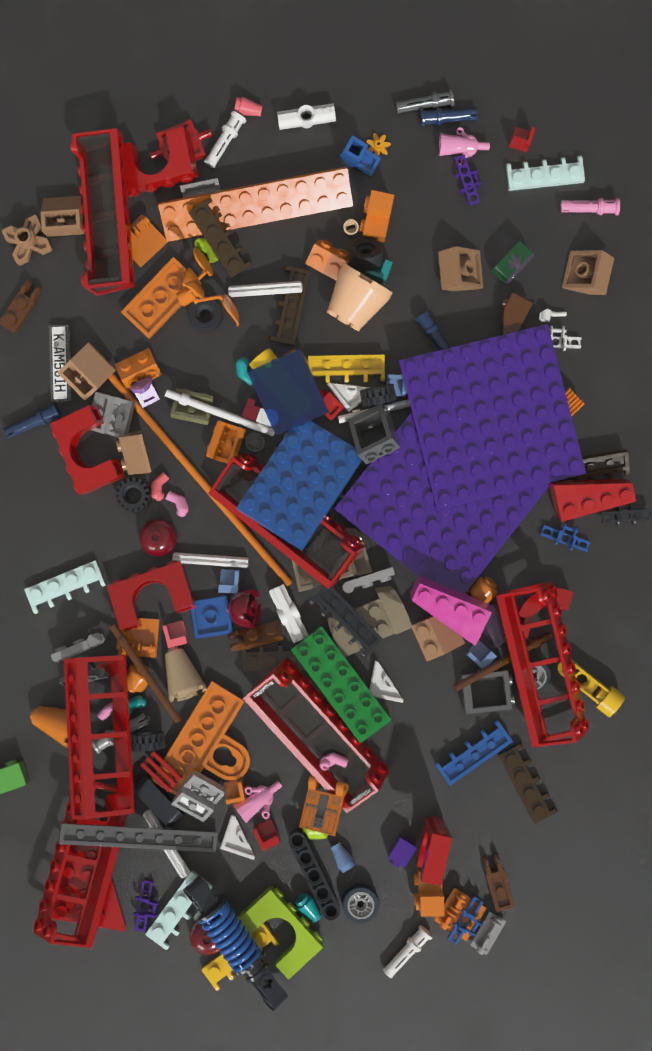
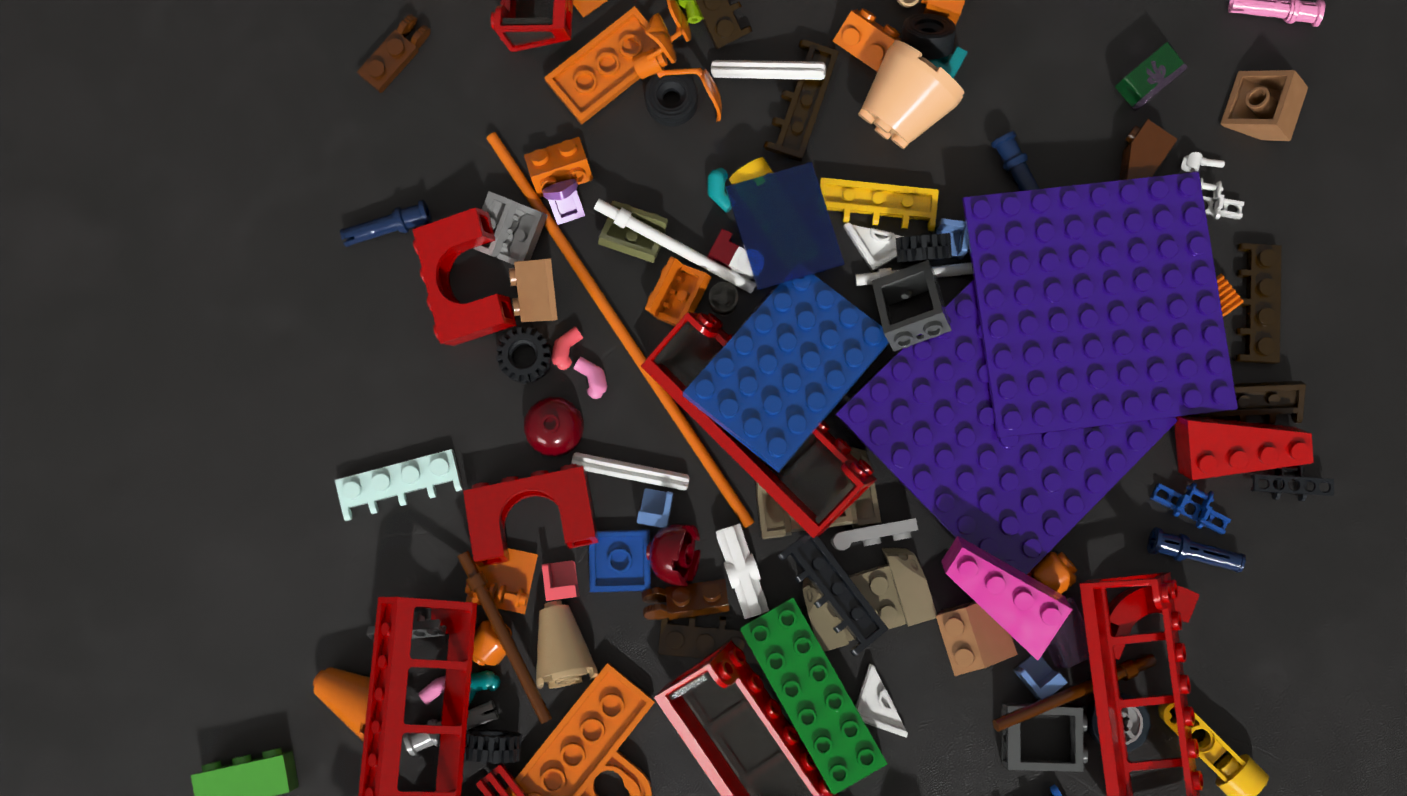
camera: 15 degrees right, 5 degrees down
(59, 355) = (441, 144): tile -> none
(78, 647) = (406, 581): light grey hinge -> none
(86, 371) = (479, 156): medium nougat slope -> none
(332, 404) = (851, 255): red bracket -> none
(460, 269) = (1068, 76): medium nougat slope -> none
(561, 564) = (1181, 548): none -> dark blue pin
(598, 402) = (1261, 303): none -> dark brown hinge

